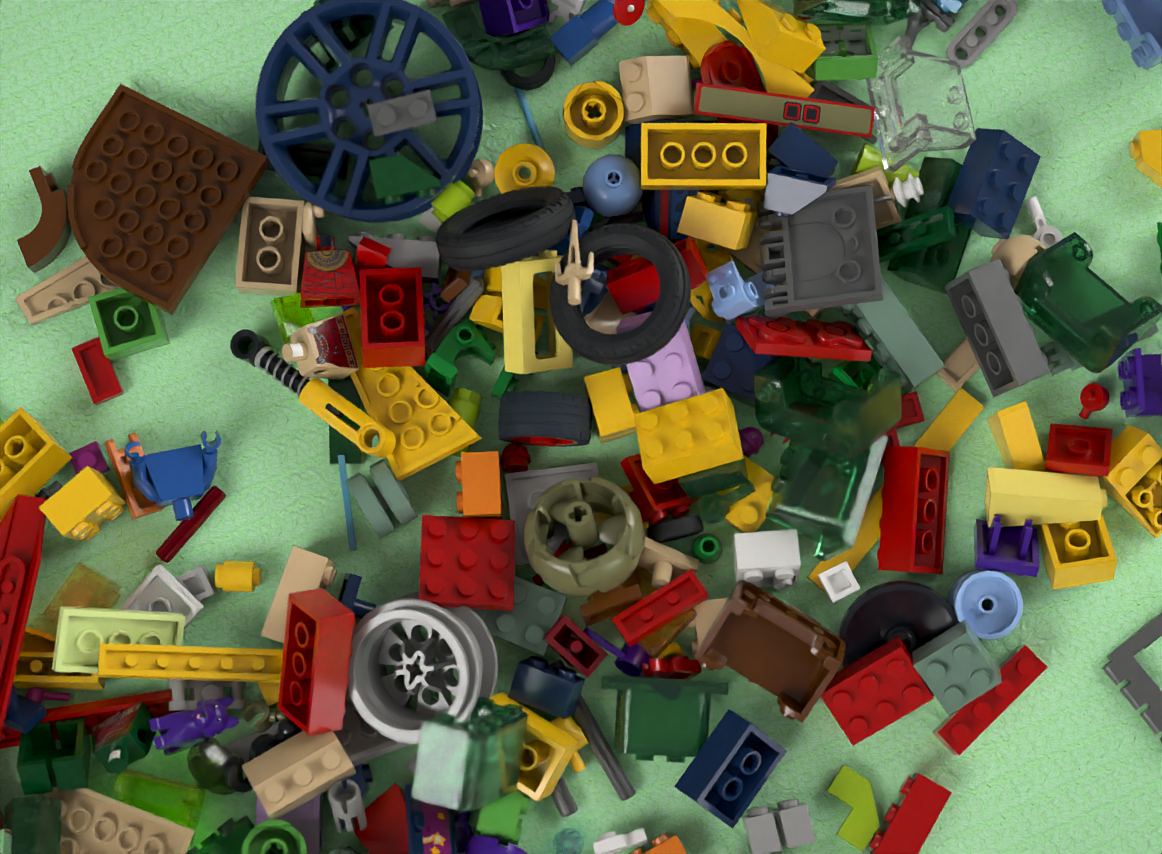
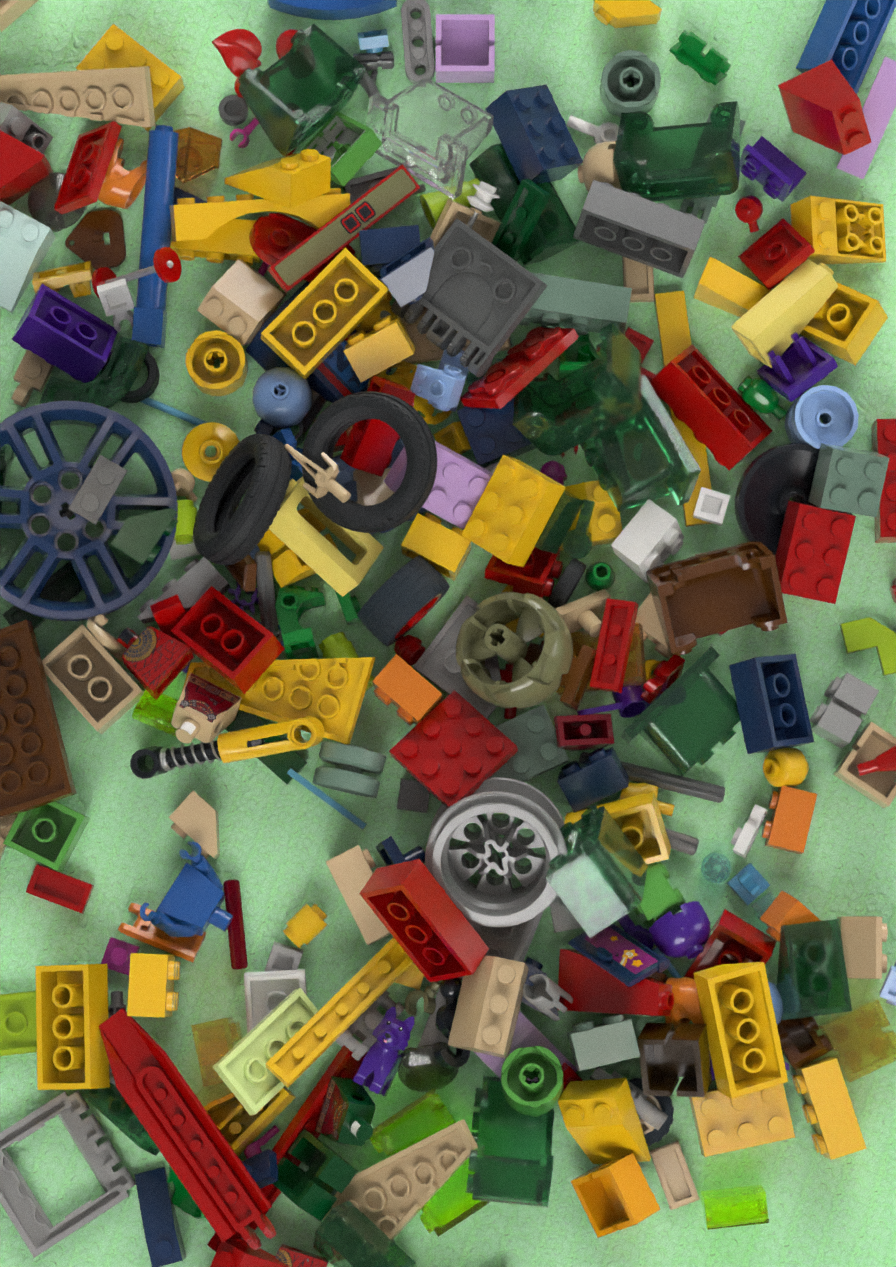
camera: 45 degrees left, 0 degrees up
(240, 425) = (200, 822): none -> tan slope
(407, 565) = (413, 796): none -> dark grey tile
(693, 825) = (785, 767): none -> yellow head
(959, 541) = (761, 397): none -> green plant
(1010, 71) = (464, 48): none -> lavender piece
(1119, 215) = (634, 68): none -> sand green brick

